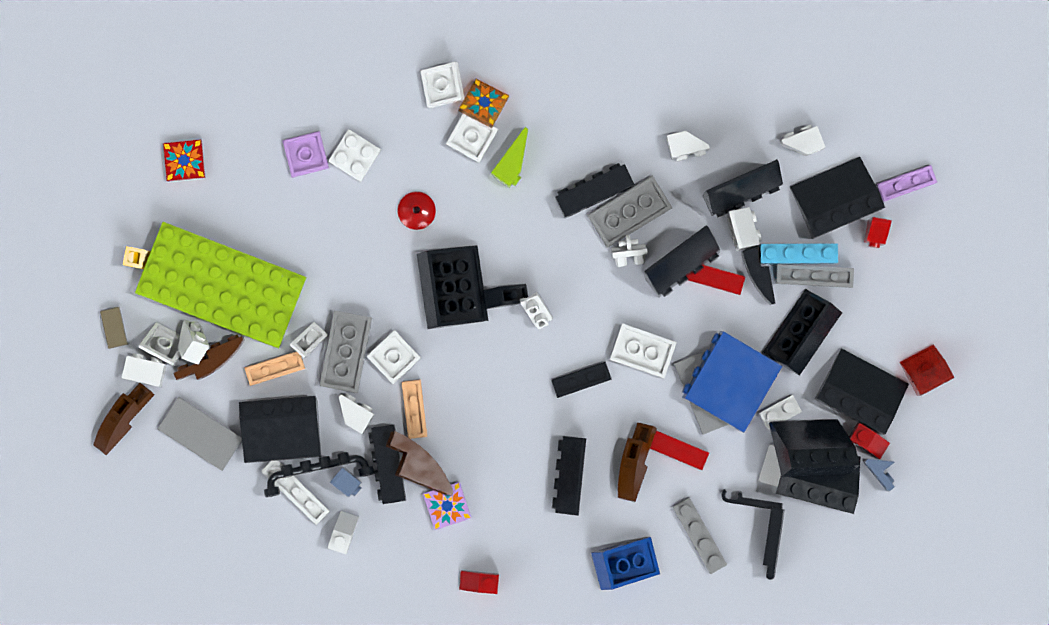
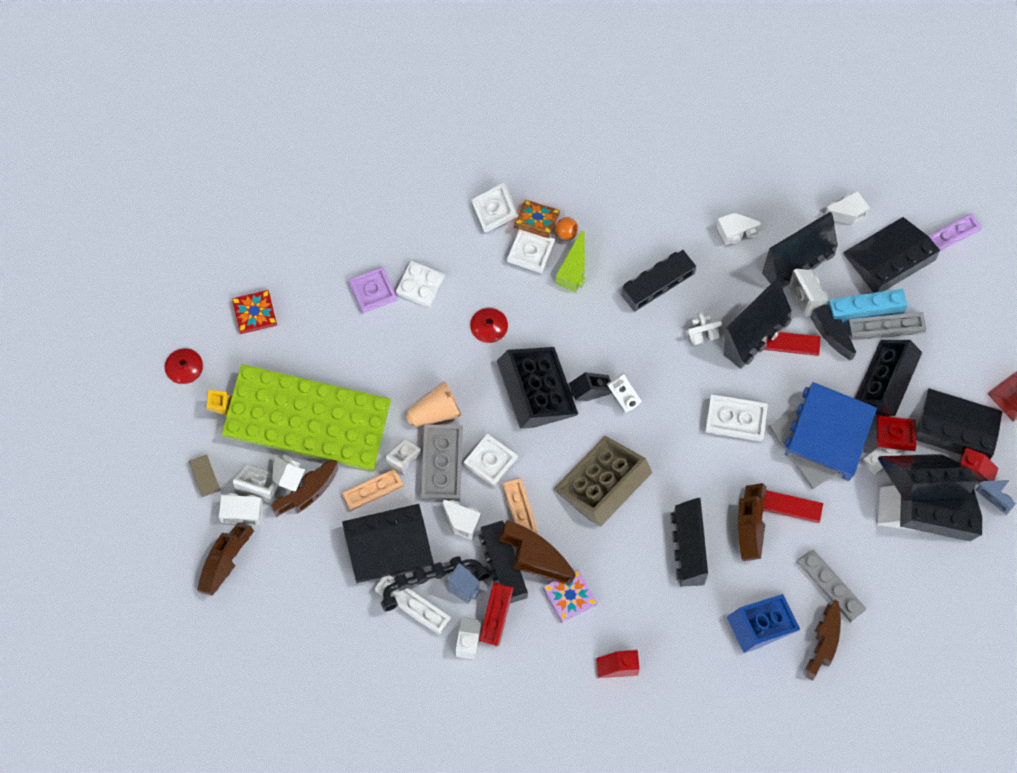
camera: 10 degrees left, 20 degrees down
(116, 211) = (187, 373): none -> red dish
(200, 433) = (306, 564): light grey tile -> none
(347, 295) = (434, 407): none -> light nougat cone
(372, 516) = (496, 614): none -> red tile
(499, 395) = (604, 480): none -> dark tan slope
(511, 119) = (566, 228): none -> orange piece
(581, 379) = (681, 455): black tile -> none
(629, 211) = (695, 295): light grey tile -> none
(686, 583) = (829, 635): none -> reddish brown slope
(774, 528) = (906, 564): black hinge -> none
(796, 393) = (896, 433): none -> red tile
(877, 232) = (937, 273): red slope -> none

